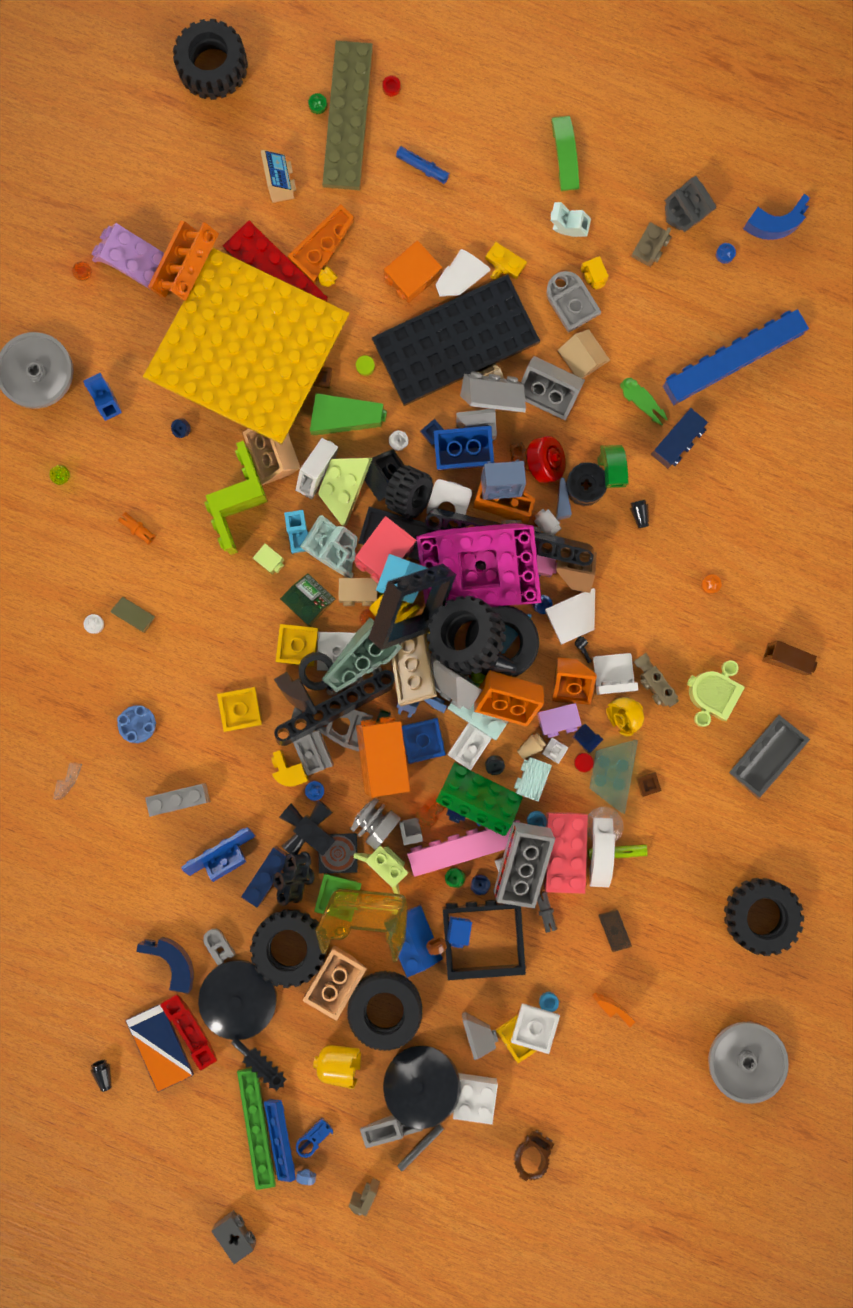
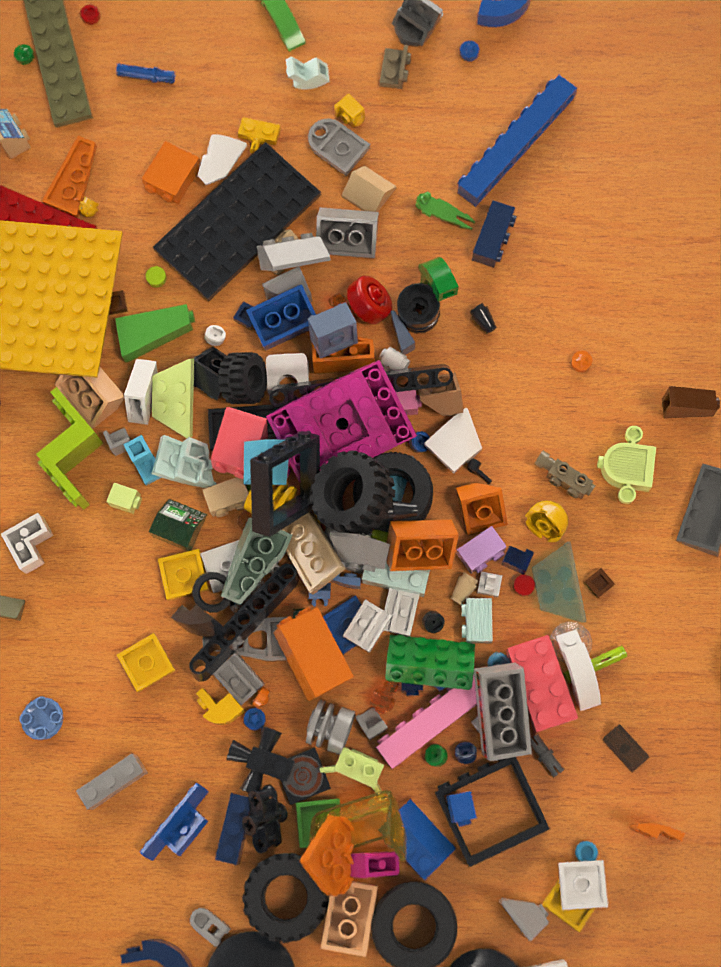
camera: 15 degrees left, 10 degrees down
(168, 566) = (23, 540): none -> white brick
(280, 505) = (117, 440): none -> light grey panel
(326, 775) = (261, 697): none -> orange tile
(336, 933) = (329, 856): none -> orange plate
(369, 949) = (374, 864): none -> dark pink brick
(436, 946) = (443, 834): dark orange tile -> none
(437, 749) = (367, 626): none -> white plate
(614, 674) = (520, 484): white bracket -> none

